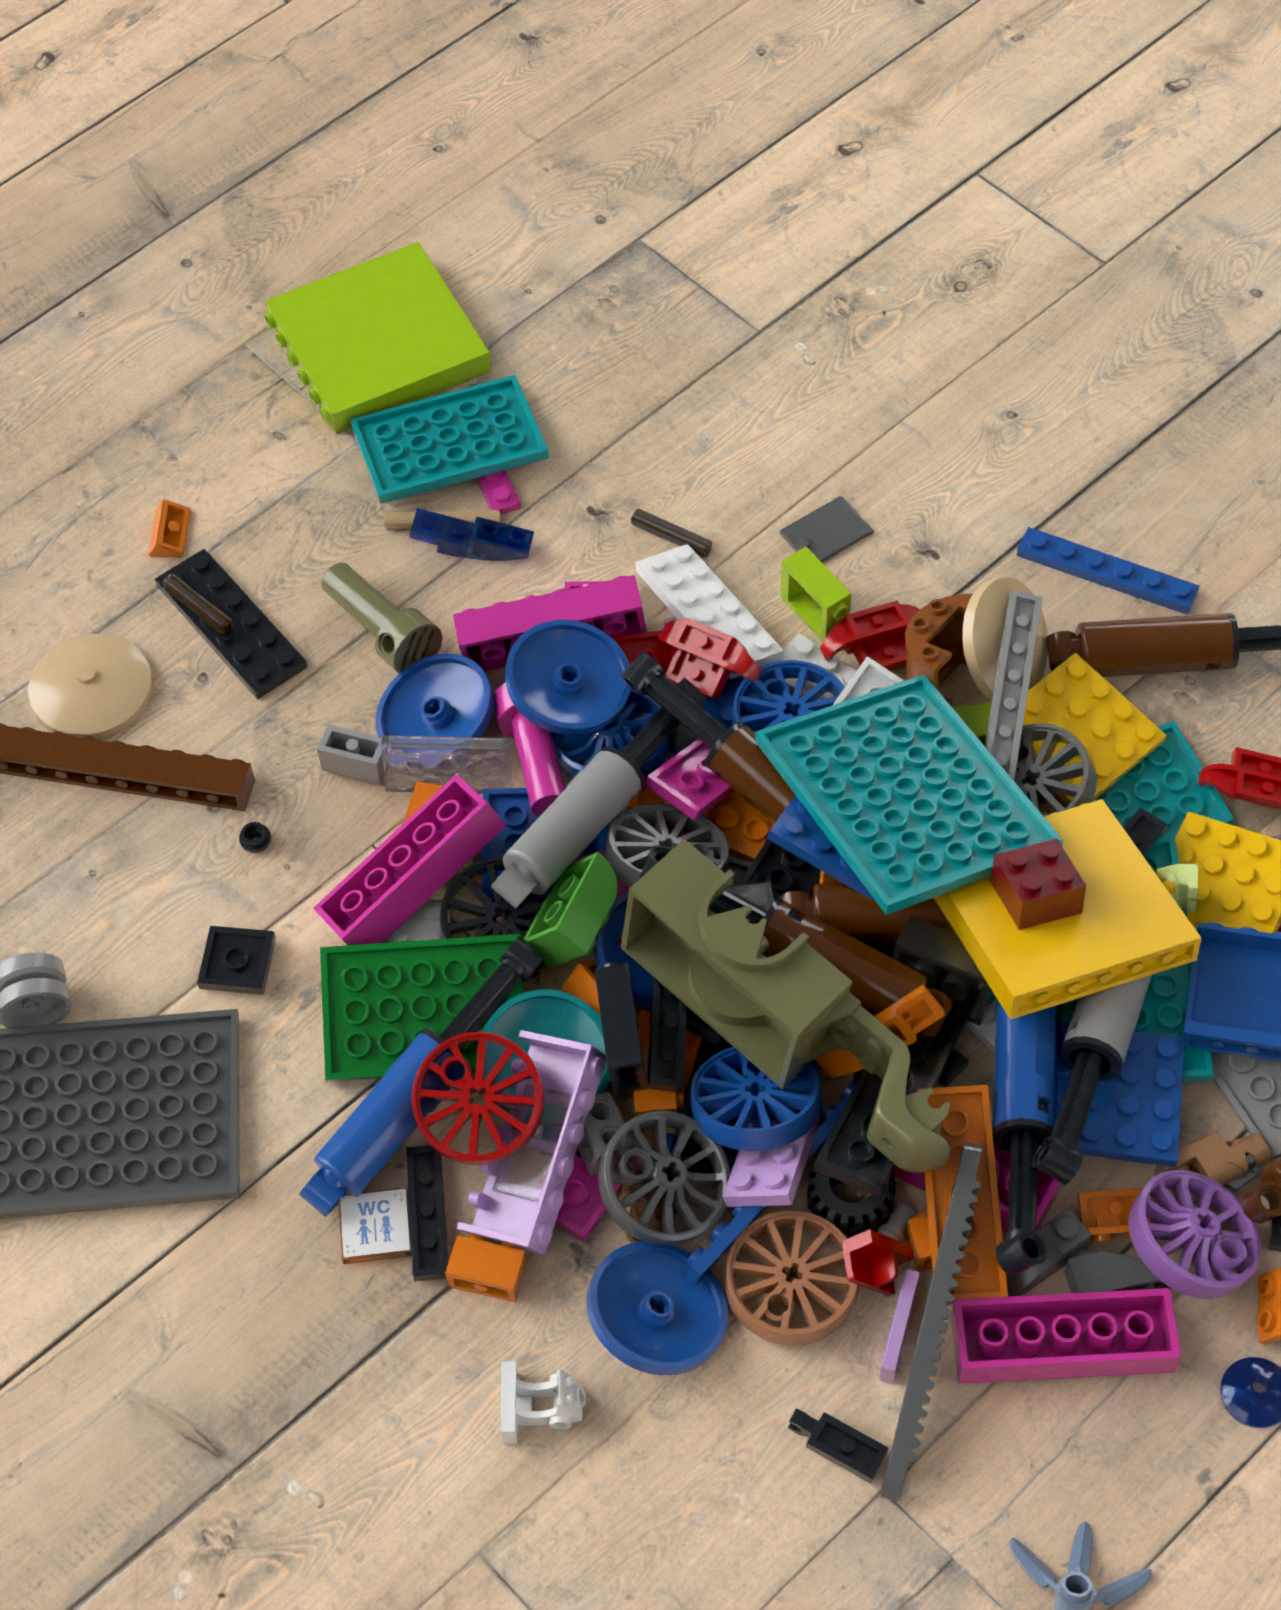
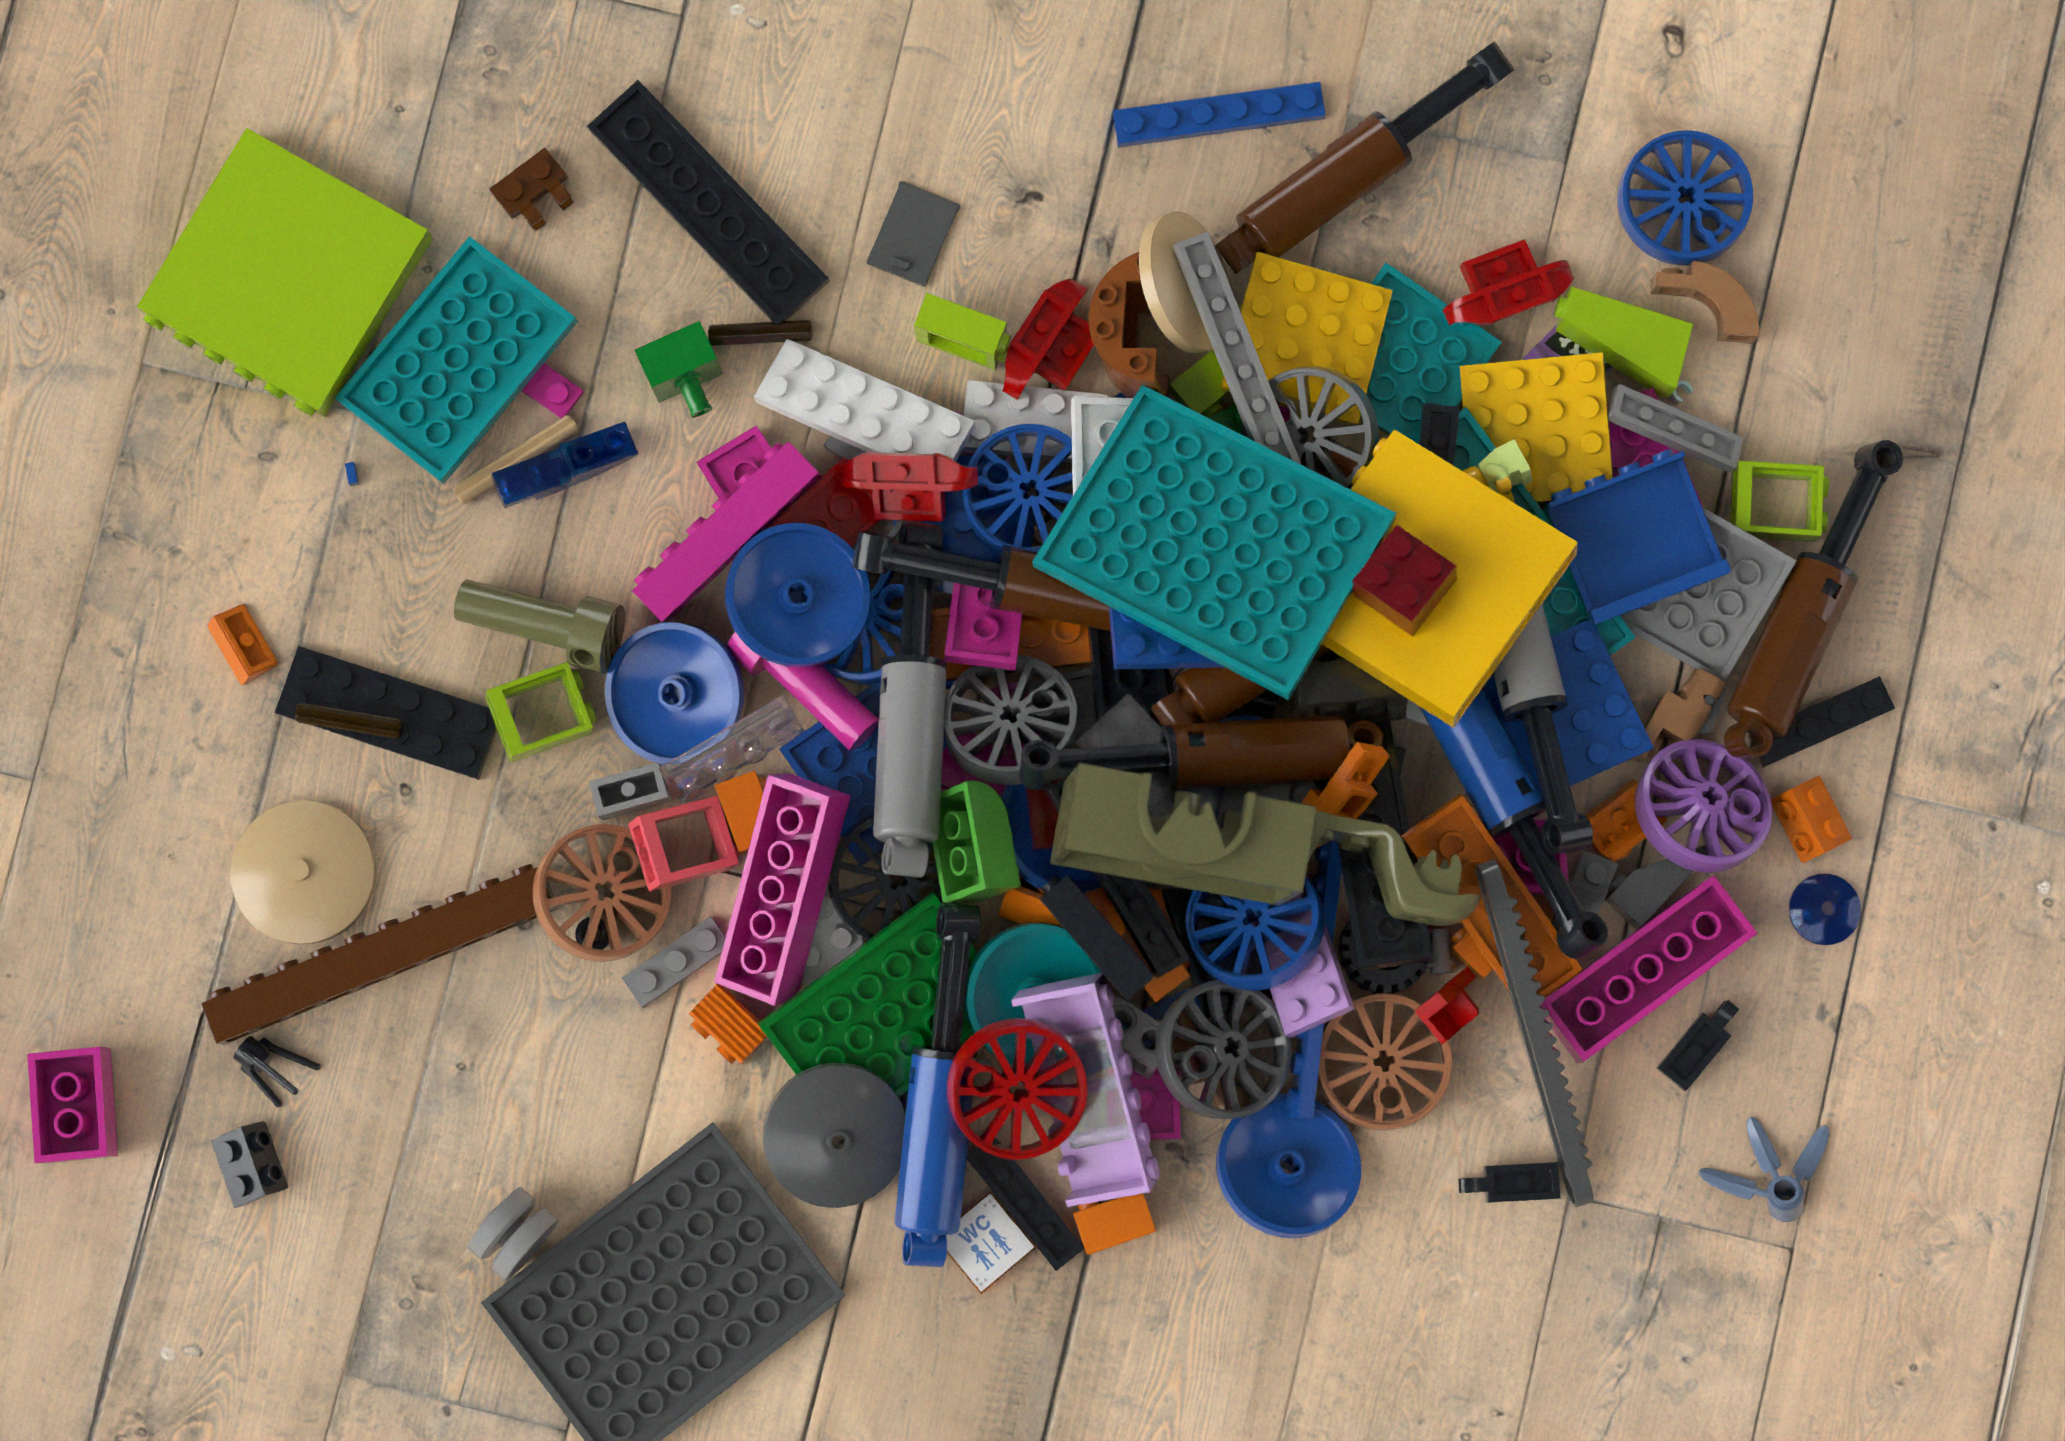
camera: 35 degrees left, 25 degrees up
(236, 960) = (672, 1071): black plate -> none
(284, 1075) = (826, 1104): none -> dark grey dish
(290, 809) = (601, 875): none -> nougat piece
(292, 890) = (675, 962): none -> light grey plate
(301, 943) = (729, 1023): none -> orange brick
(325, 472) = (351, 472): none -> blue piece
(335, 649) = (505, 724): none -> lime window
(350, 826) = (652, 854): none -> coral window
(517, 1402) = (1265, 1296): white tile -> none
(580, 370) = (528, 184): none -> reddish brown plate
(598, 512) = (681, 365): none -> green brick
(694, 440) = (708, 203): none -> black plate
(899, 1326) = (1500, 1045): lavender tile -> none
(1073, 1431) = (1697, 1046): none -> black plate

